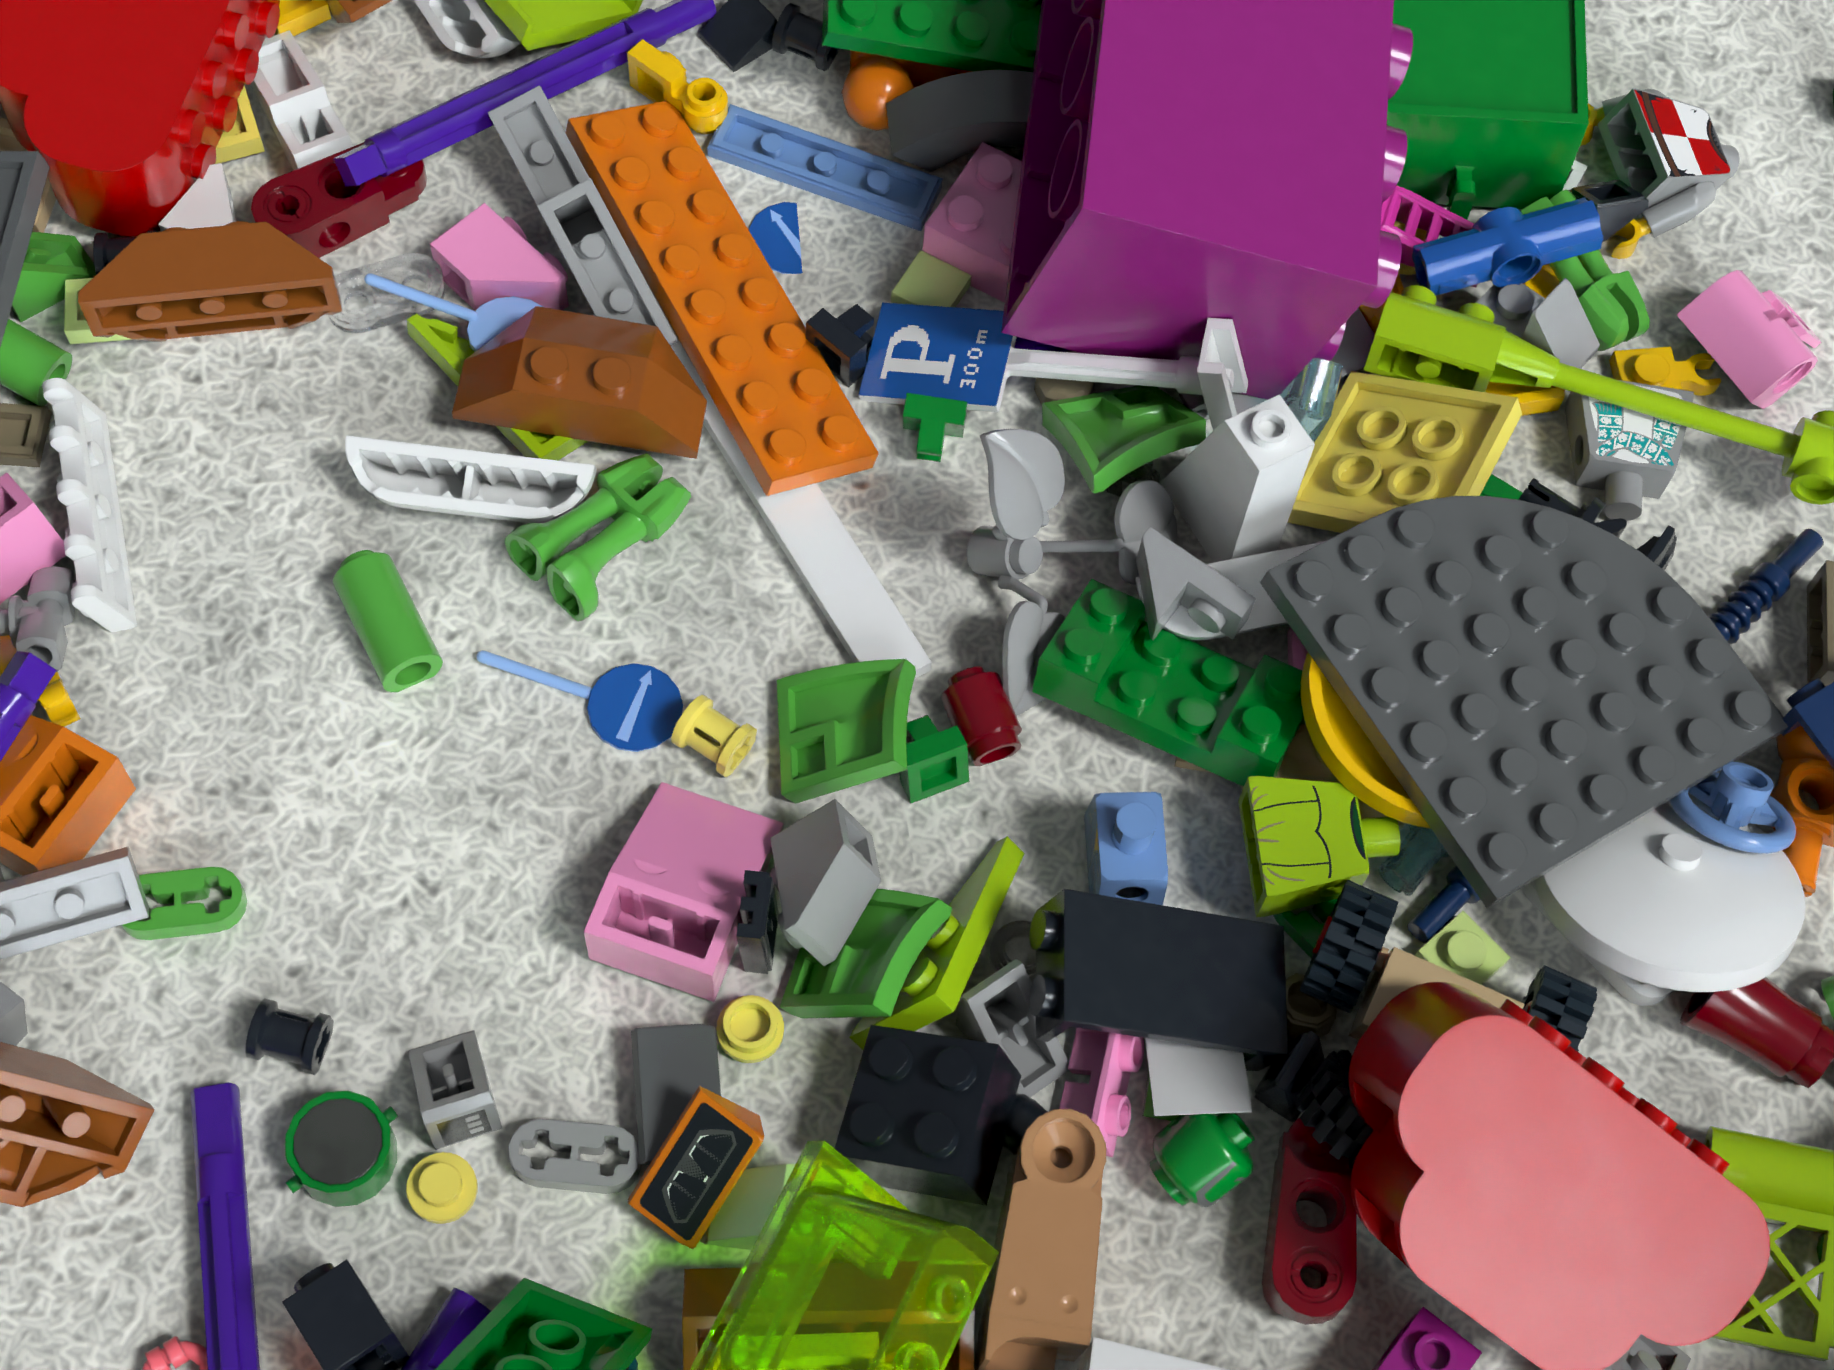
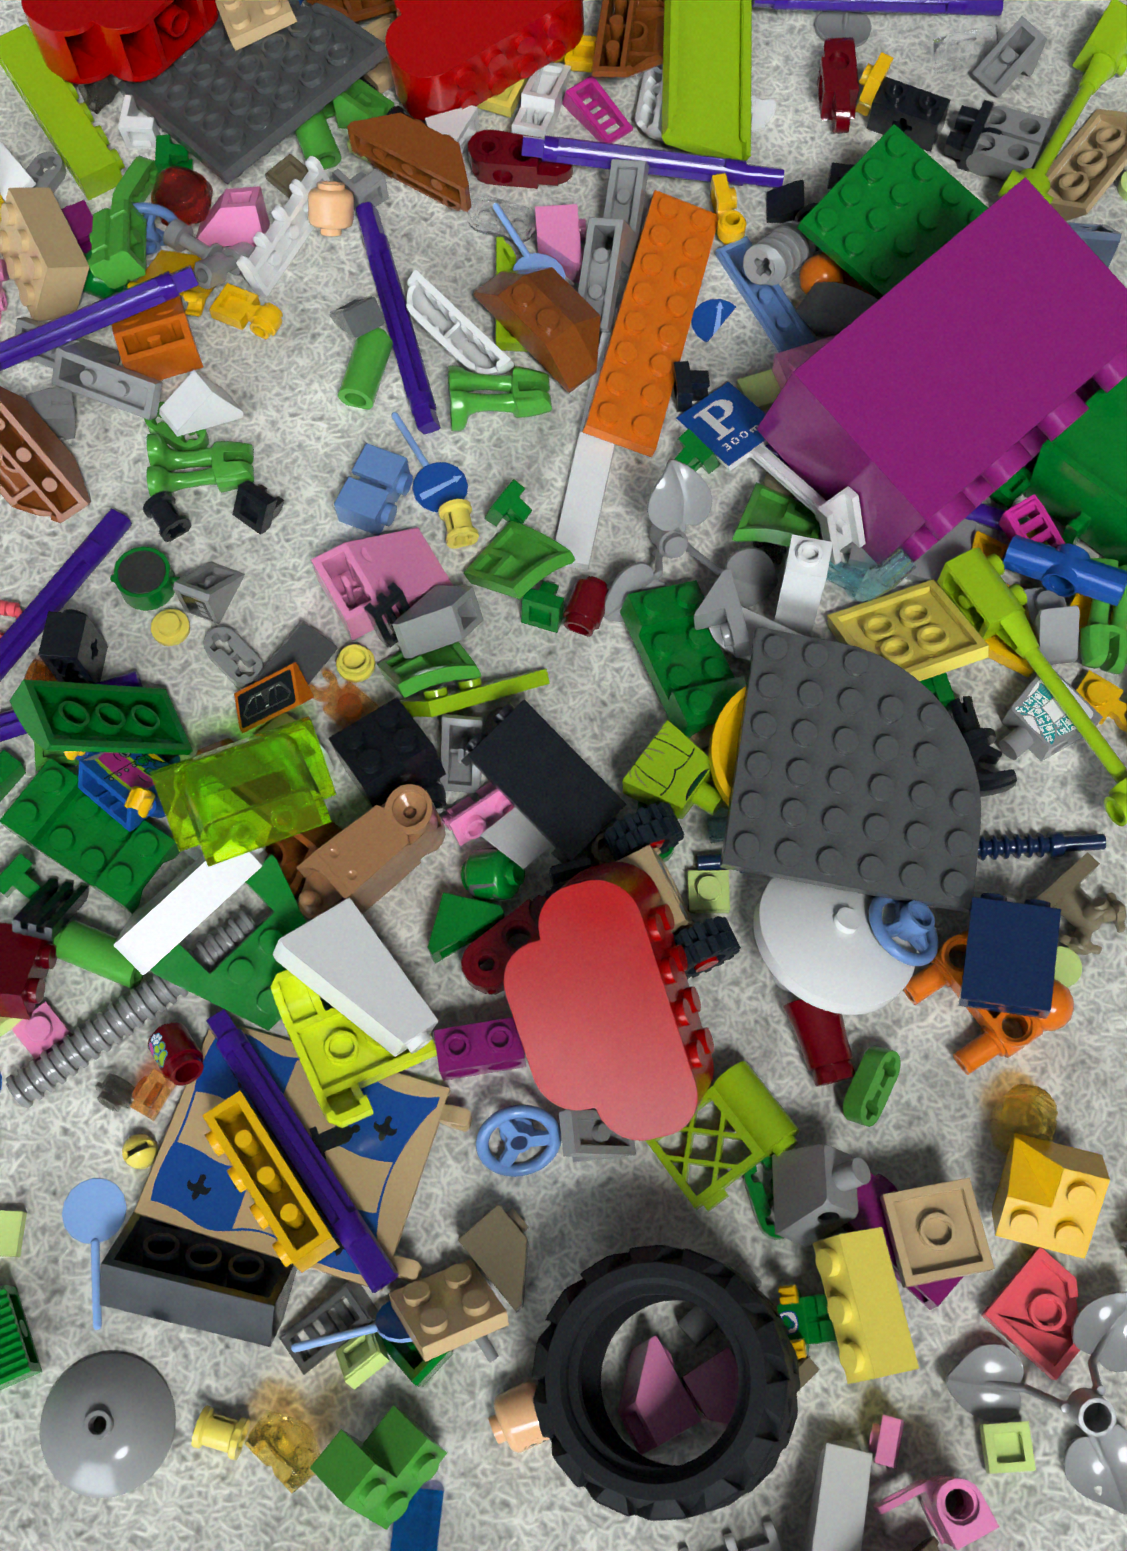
camera: 50 degrees right, 5 degrees up
(115, 666) = (239, 306): none -> yellow plate
(130, 435) = (330, 207): none -> light nougat head
(142, 387) = (364, 187): none -> light grey panel
(195, 848) = (198, 406): none -> white slope
(297, 889) = (227, 460): none -> bright green piece
(316, 555) = (358, 316): none -> dark grey slope
(361, 83) = (592, 89): none -> dark pink slope
(365, 523) = (398, 319): none -> dark purple piece
(409, 924) = (256, 506): none -> black tile
(557, 777) = (371, 499): none -> medium blue piece
(759, 661) = (509, 506): none -> green tile
(795, 1094) = (344, 704): none -> clear orange plate
(806, 96) = (777, 254): none -> light grey piece
(1127, 845) = (588, 714): medium blue torso -> none
(1219, 1255) = (460, 923): none -> green slope

